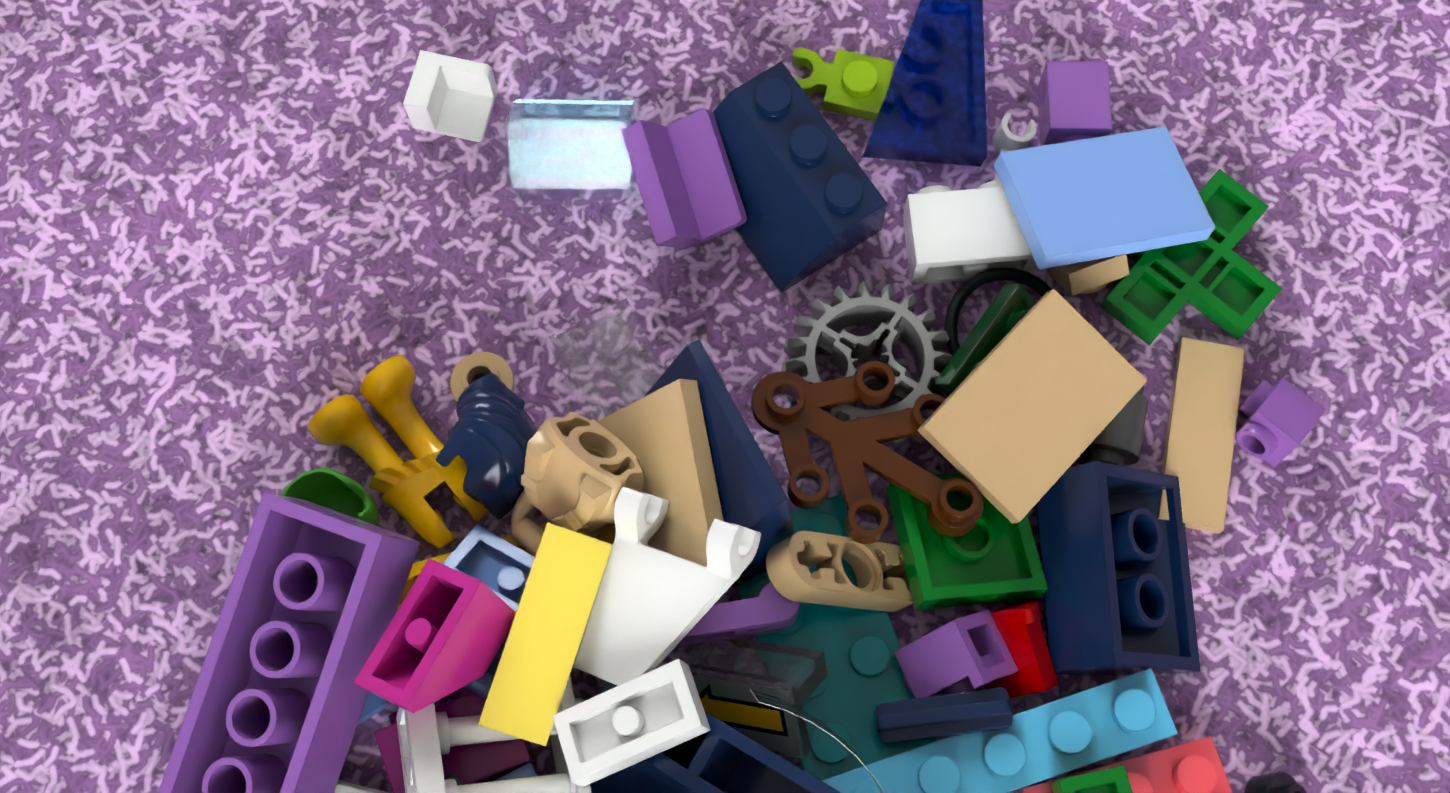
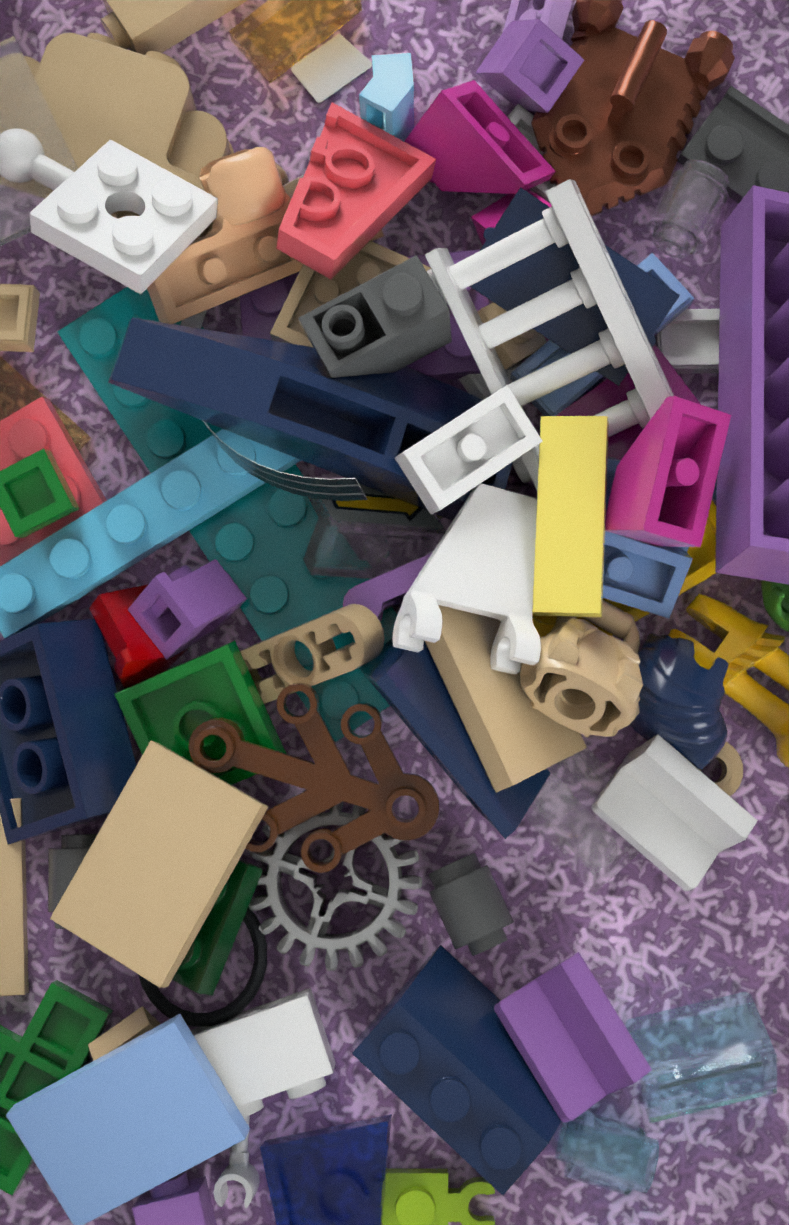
camera: 165 degrees right, 10 degrees up
(534, 348) = (671, 812): none -> white panel
(677, 81) = (607, 1153): none -> clear light blue brick
(744, 315) = (470, 904): none -> dark grey brick
(944, 715) = (187, 546): dark blue axle -> none

